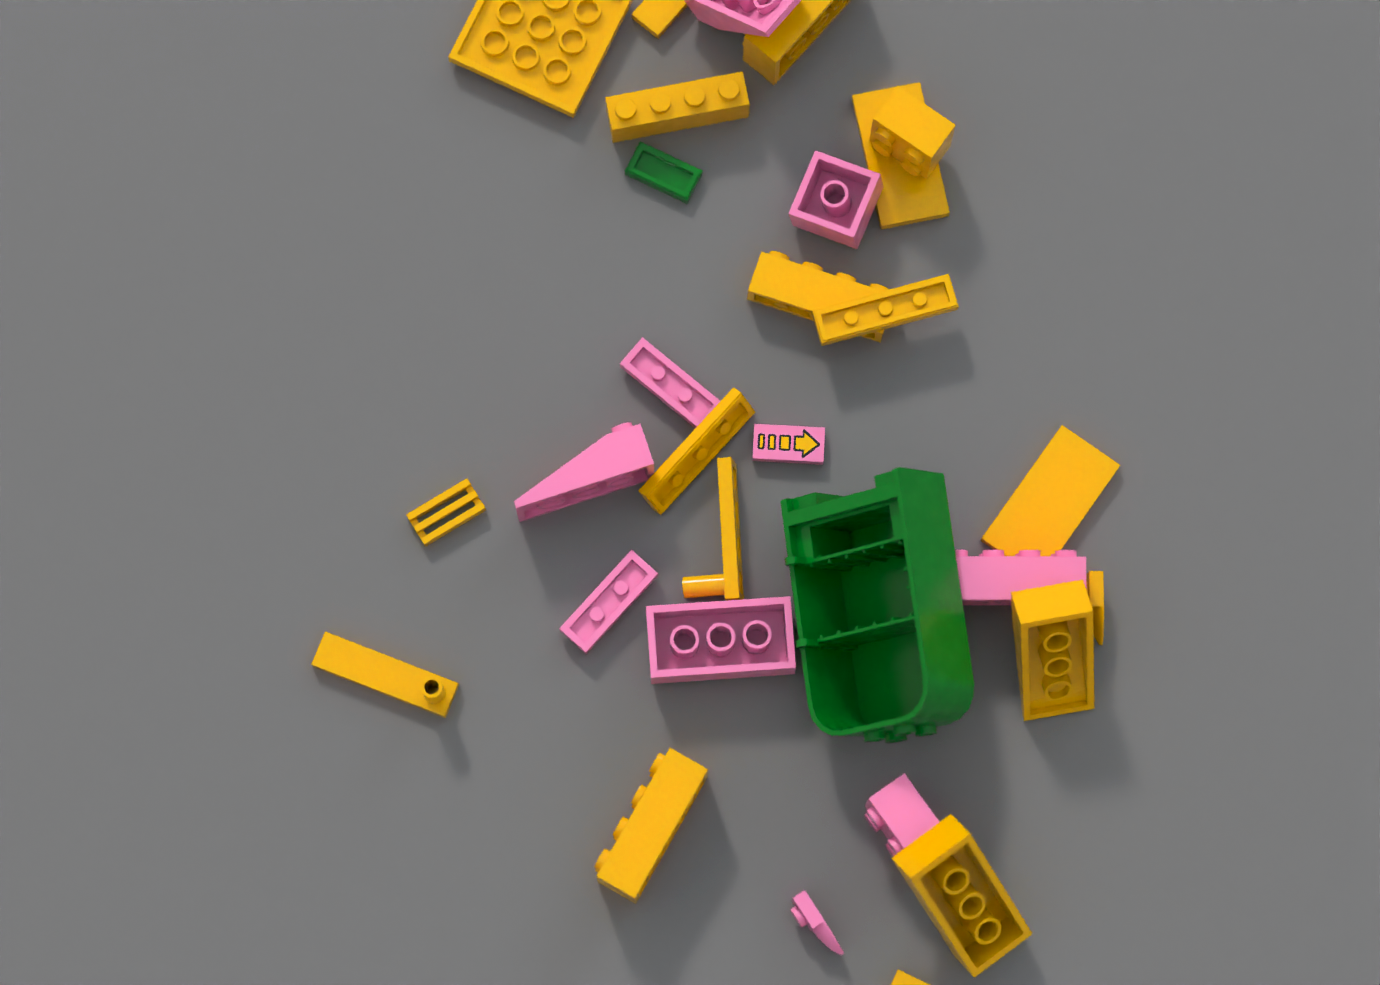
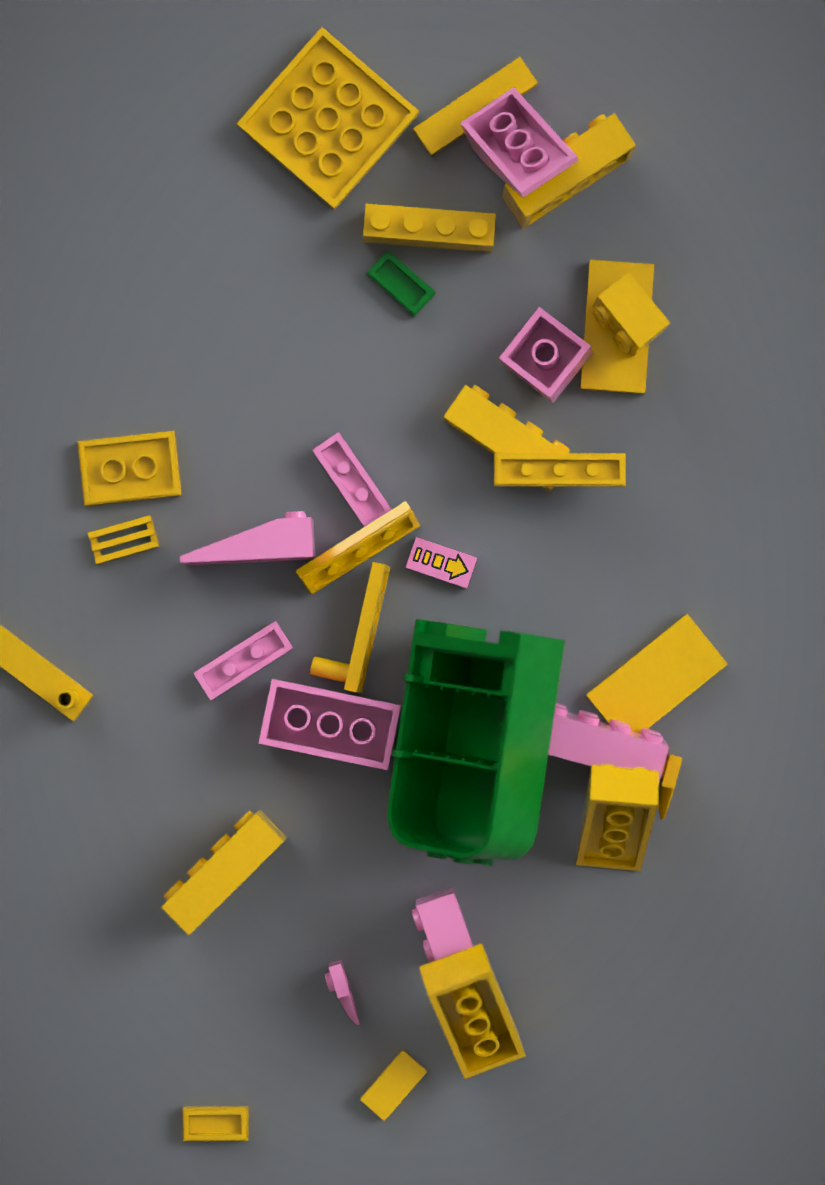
camera: 15 degrees right, 10 degrees up
(432, 437) = (129, 468): none -> yellow tile

